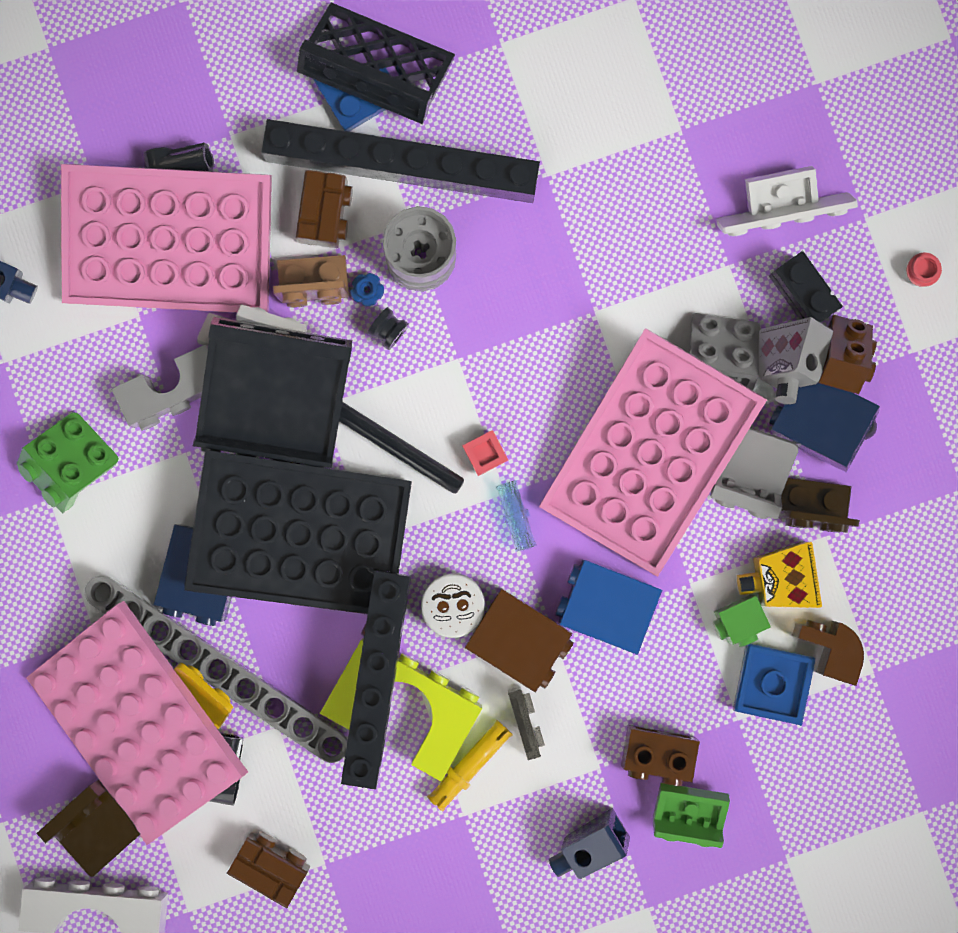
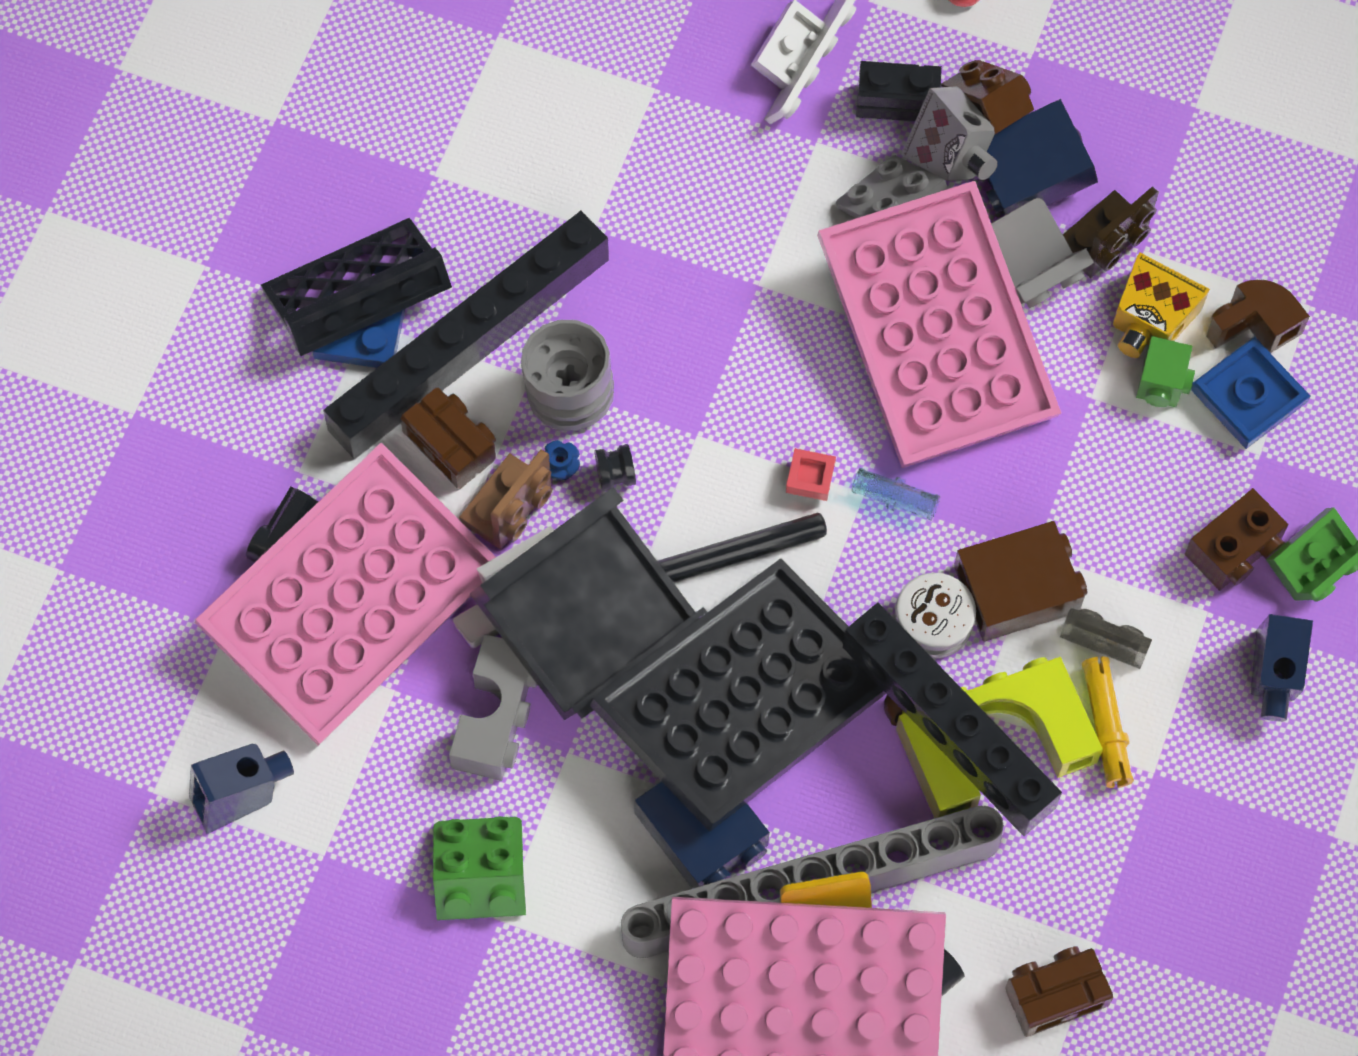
camera: 50 degrees left, 20 degrees down
(608, 606) = (1054, 475): blue brick -> none

